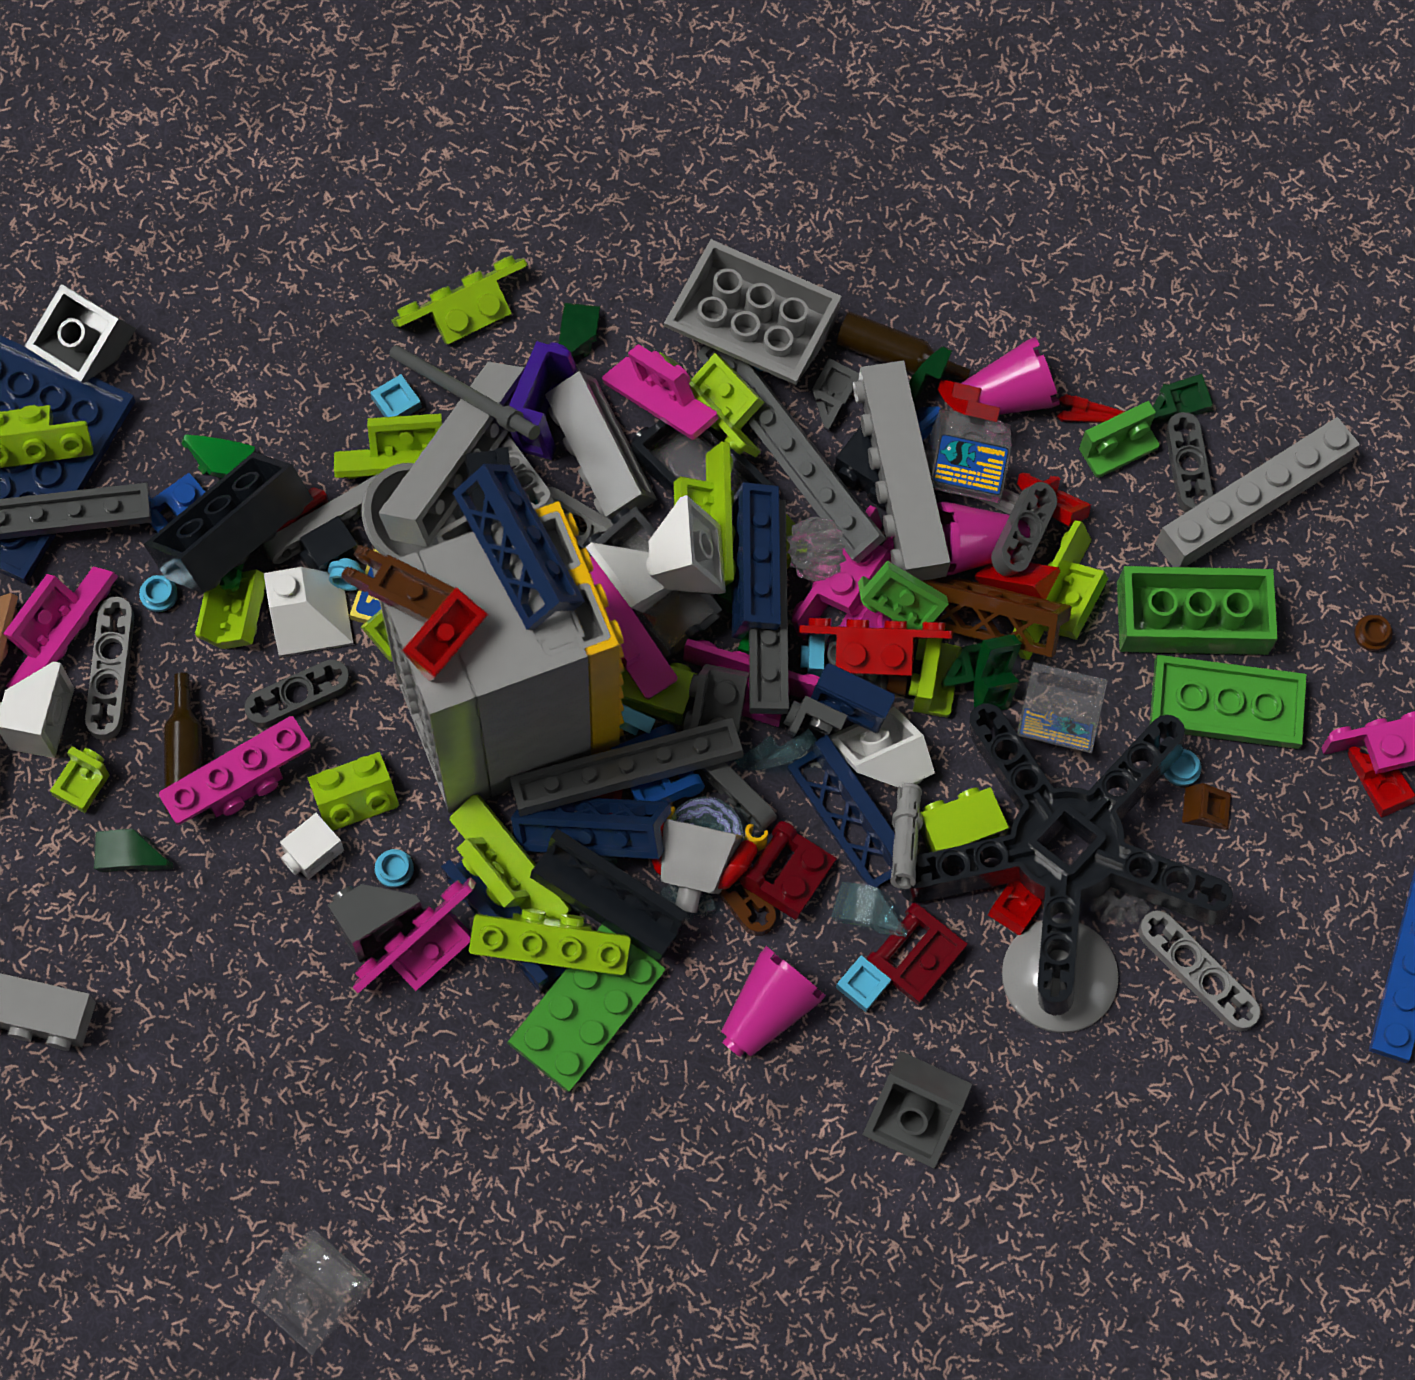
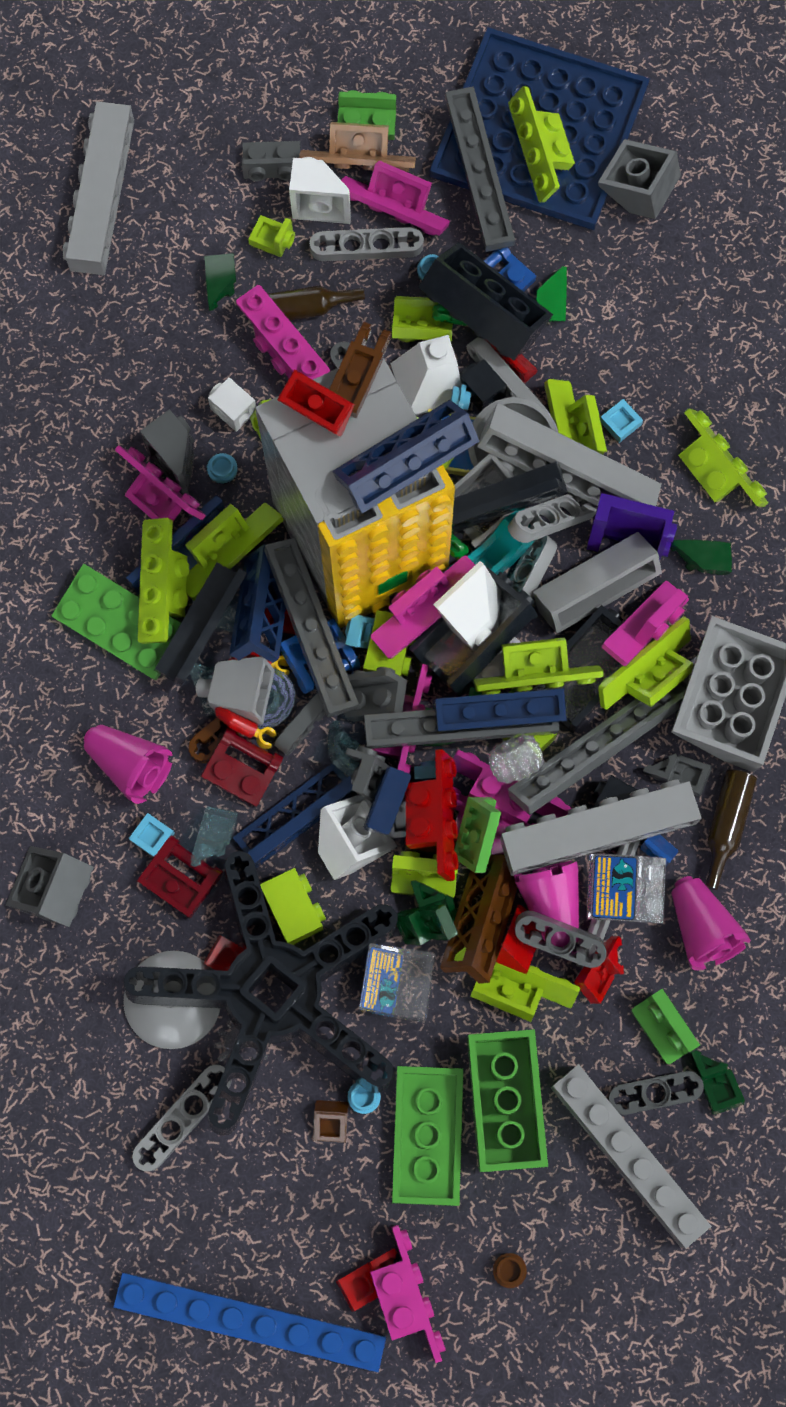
camera: 90 degrees right, 5 degrees up
(506, 416) = (598, 491): dark grey bar -> none
(687, 550) = (492, 647): white slope -> none
(907, 823) = (270, 855): light grey pin -> none
(934, 365) = (705, 850): dark green slope -> none
(965, 400) = (674, 881): red slope -> none
(1085, 411) = (694, 999): red piece -> none

